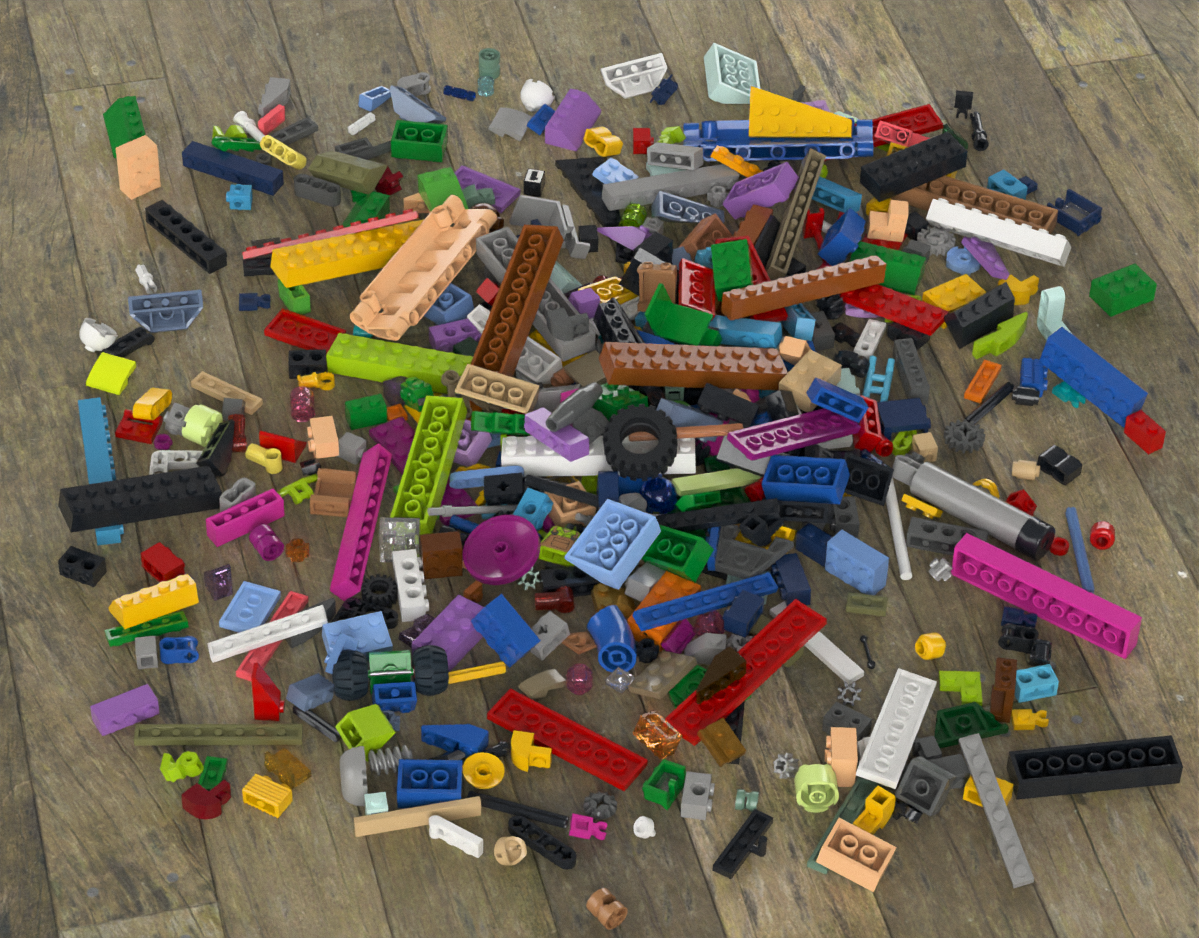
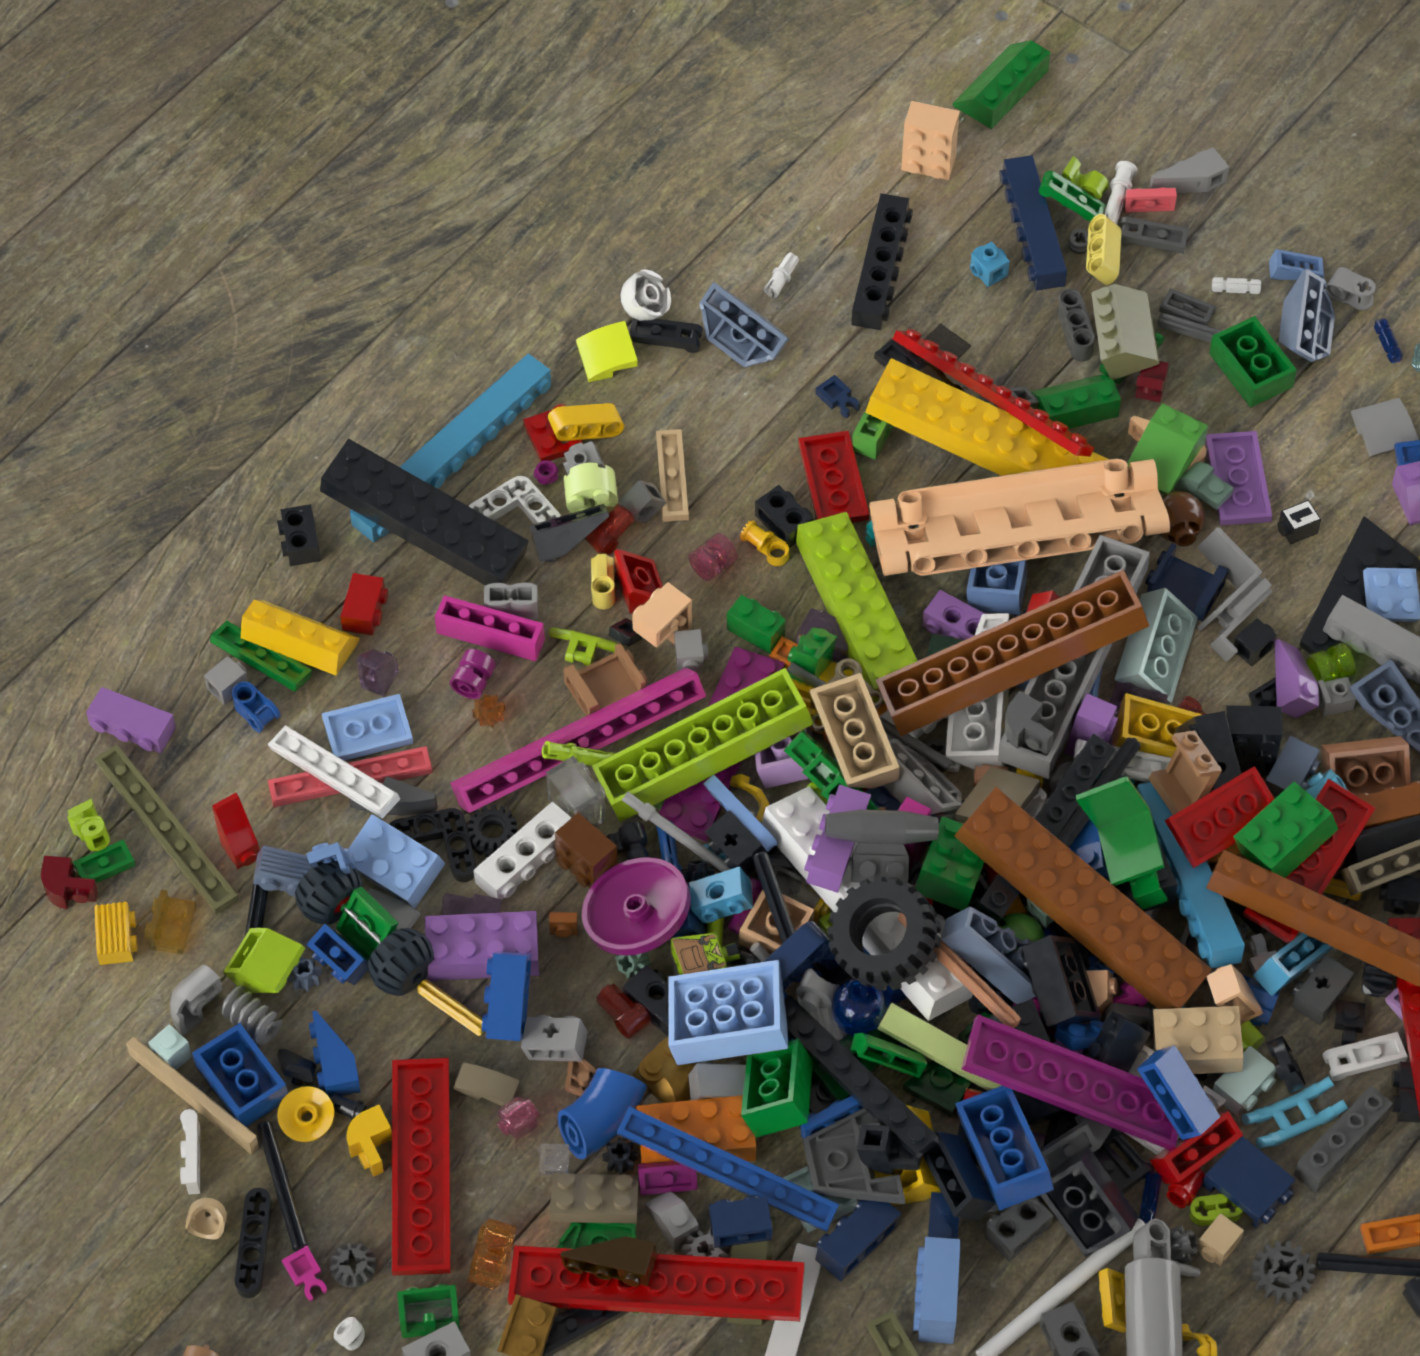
camera: 55 degrees right, 15 degrees up
(372, 522) = (565, 751): none -> lime pin
(709, 623) = (702, 1193): clear pink brick -> none

